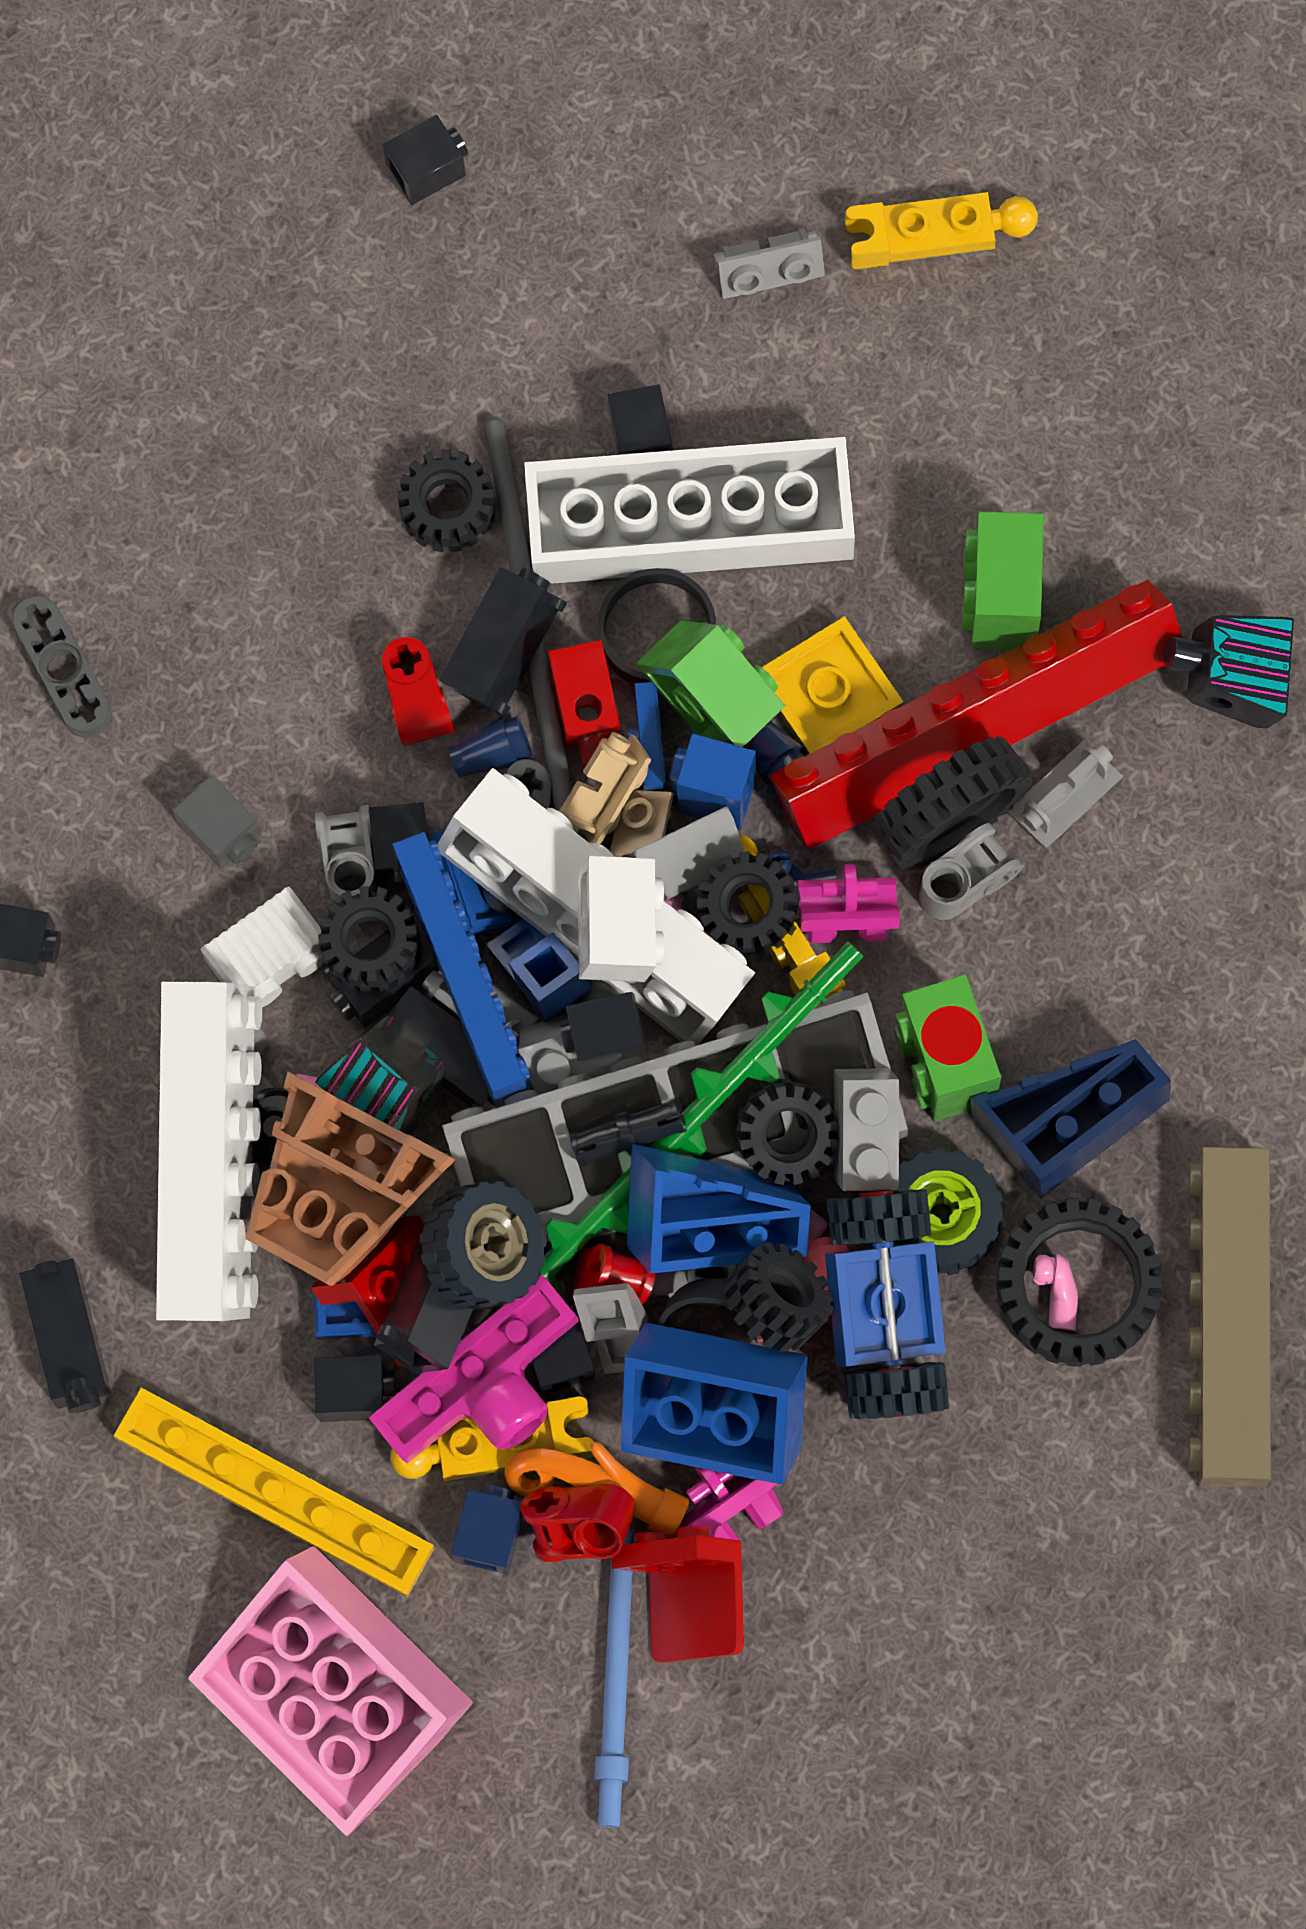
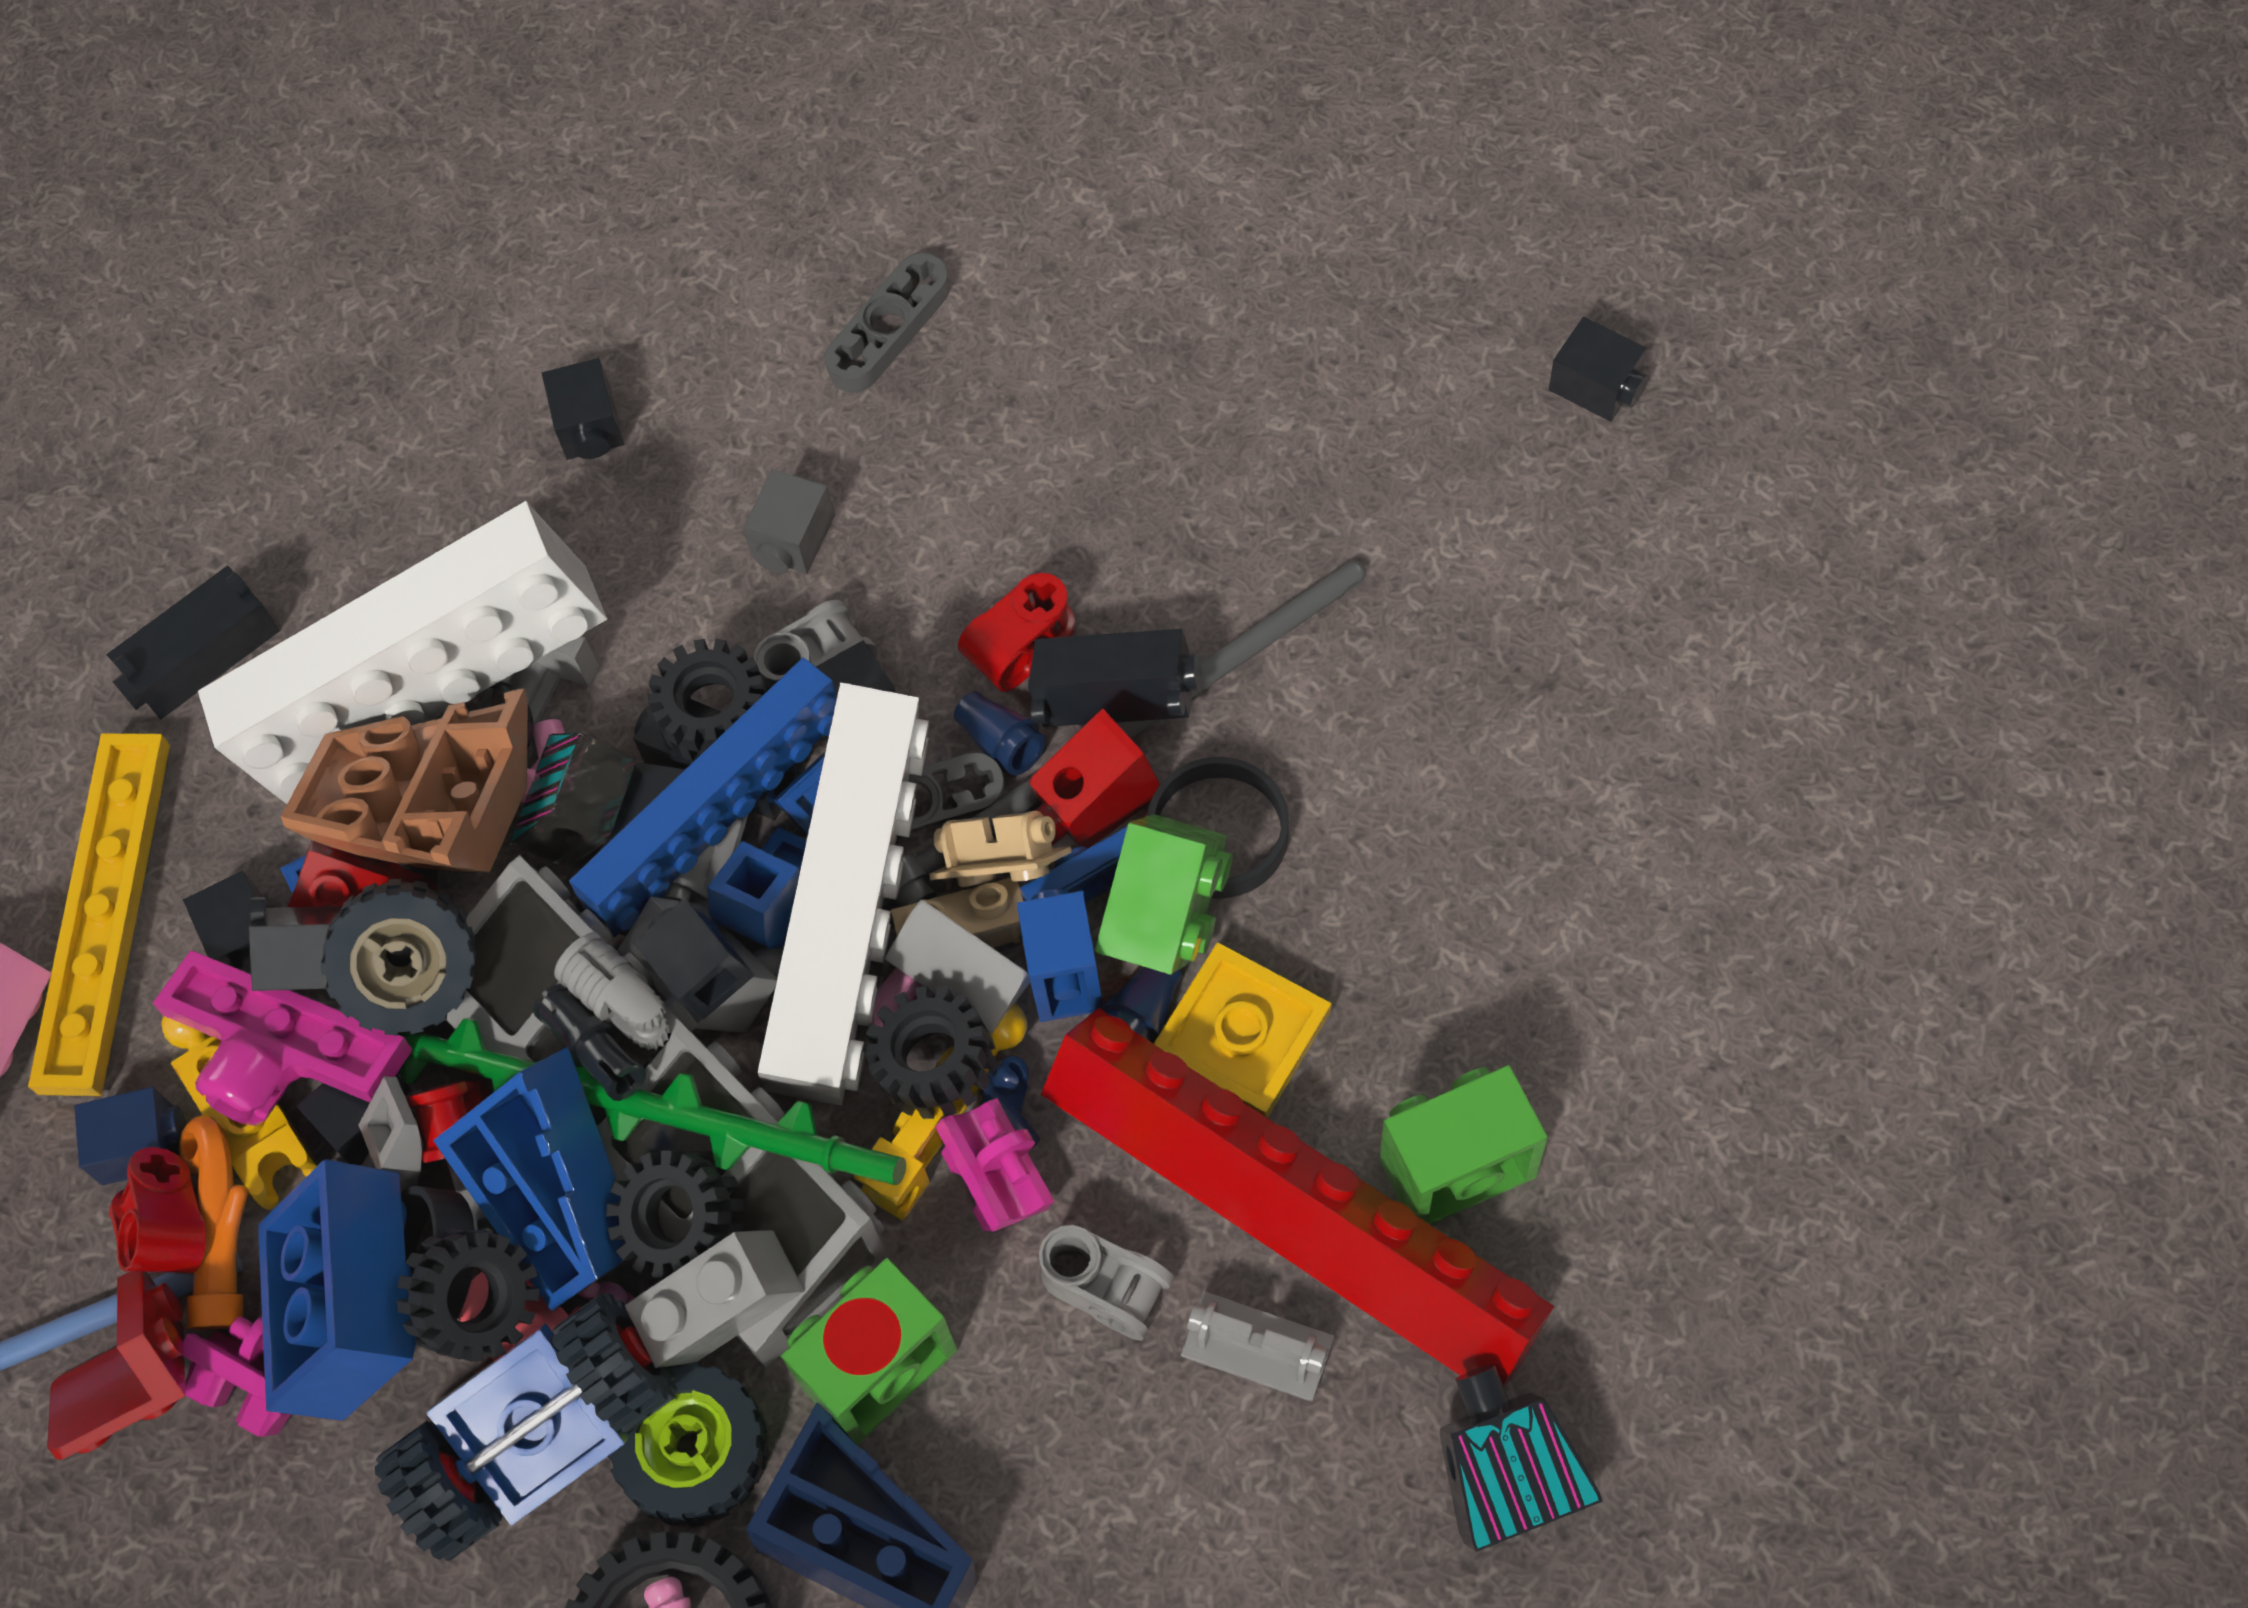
camera: 65 degrees right, 10 degrees down
(267, 947) = (663, 613): white brick -> none
(438, 472) = (1240, 532): black tyre -> none
(605, 1092) = (613, 990): none -> light grey hinge
(619, 918) = (806, 901): white brick -> none
(639, 421) = (1428, 702): black brick -> none
(690, 510) = (1362, 791): white brick -> none
(788, 260) = (1682, 733): light grey hinge -> none
(934, 227) = (1841, 884): yellow plate -> none
(951, 802) = (1155, 1209): black tyre -> none

